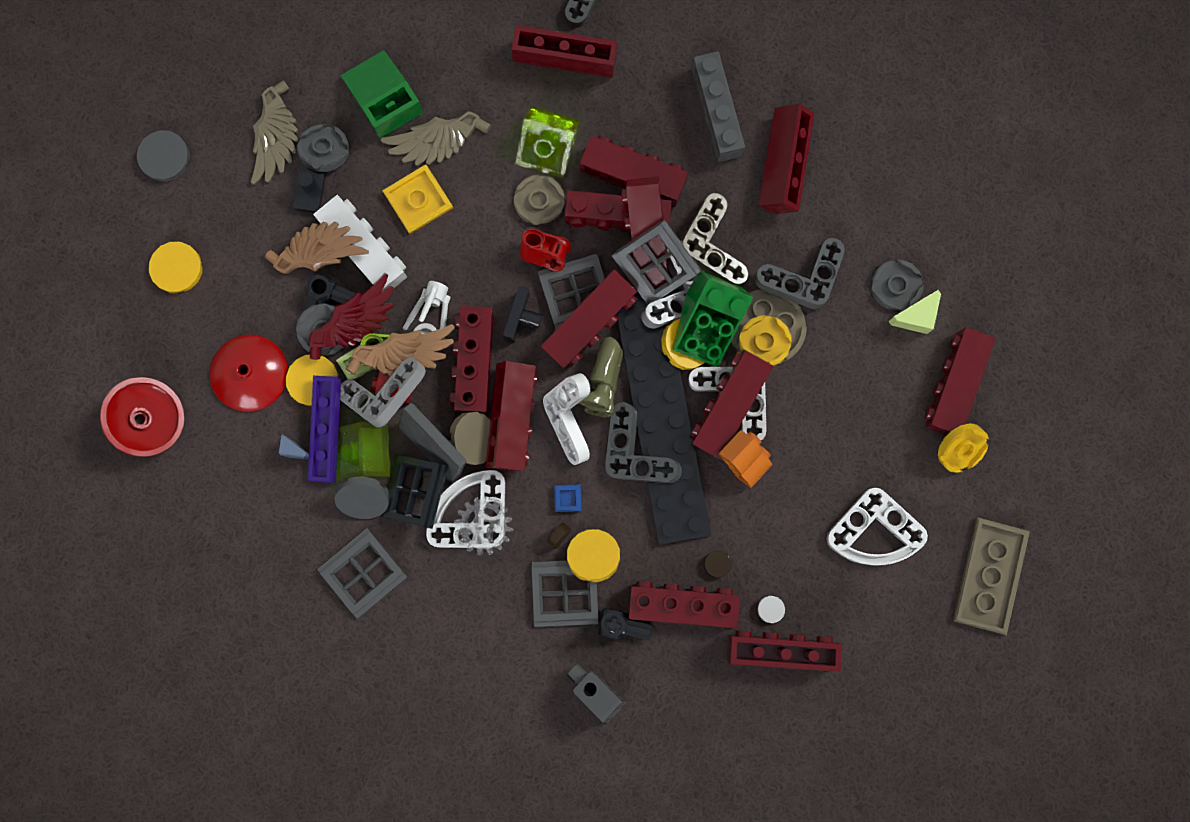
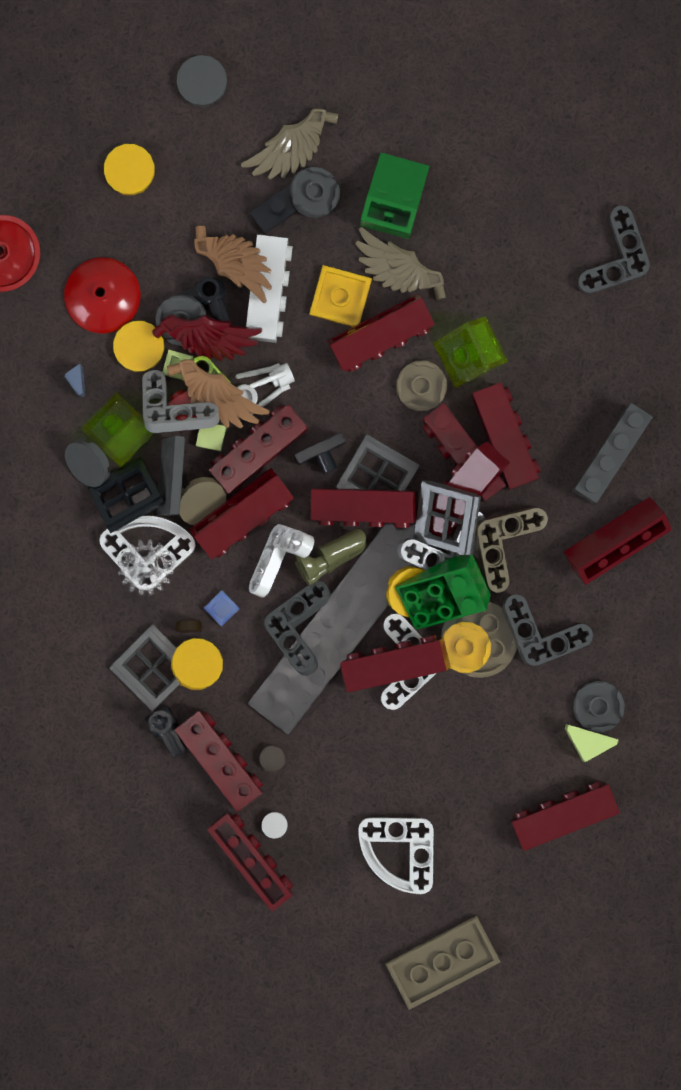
camera: 50 degrees right, 5 degrees up
(324, 429) = (111, 389): dark purple tile -> none
(347, 555) = (32, 533): dark grey piece -> none
(431, 388) = (211, 438): none -> yellowish green tile
(472, 192) = (380, 333): none -> dark red brick
(542, 249) = (386, 427): red piece -> none
(564, 51) = (550, 302): dark red brick -> none
(604, 702) = (101, 765): dark grey torso -> none
(746, 458) = (365, 710): orange brick -> none
(963, 447) = (516, 860): yellow tile -> none

